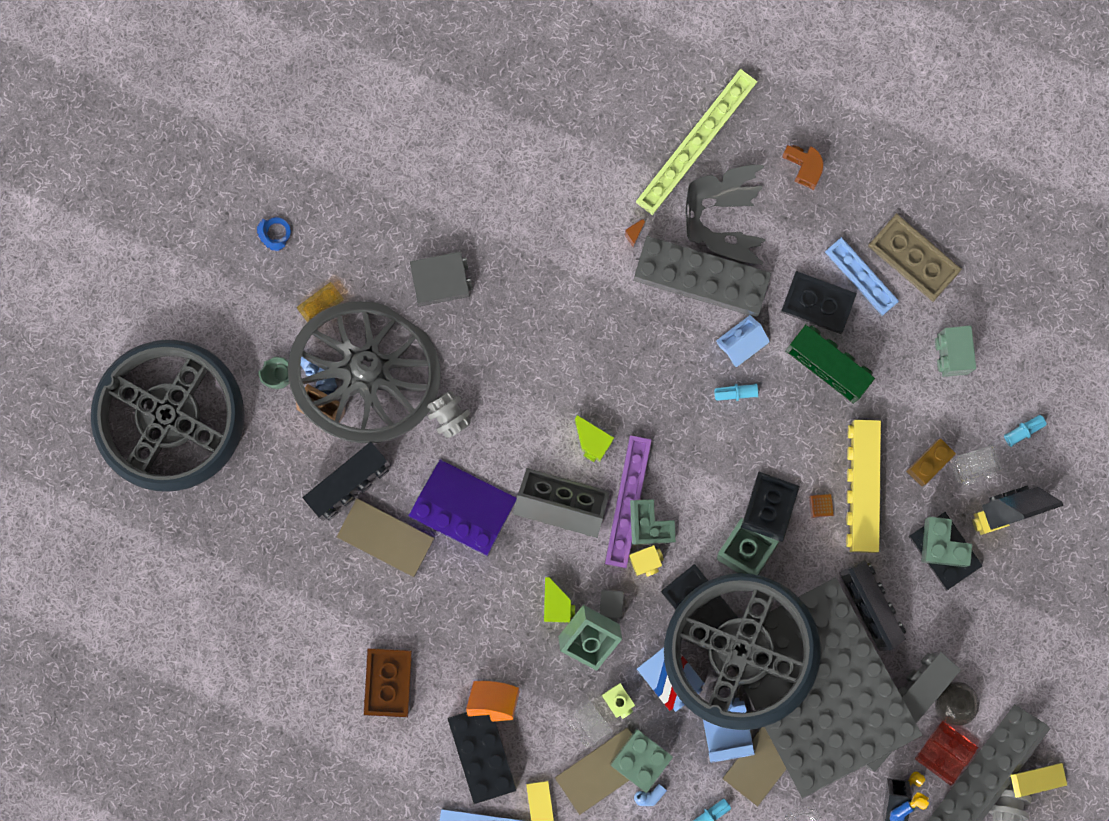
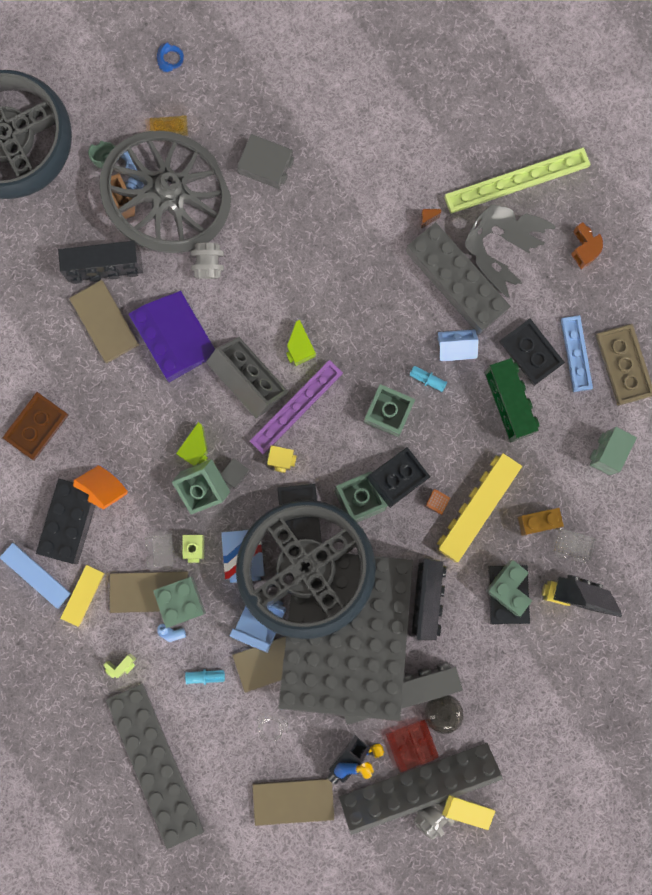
camera: 30 degrees right, 0 degrees up
(645, 528) = (296, 435): sand green plate -> none
(720, 448) = (389, 410): none -> sand green brick
(1025, 430) = (626, 543): medium azure axle -> none

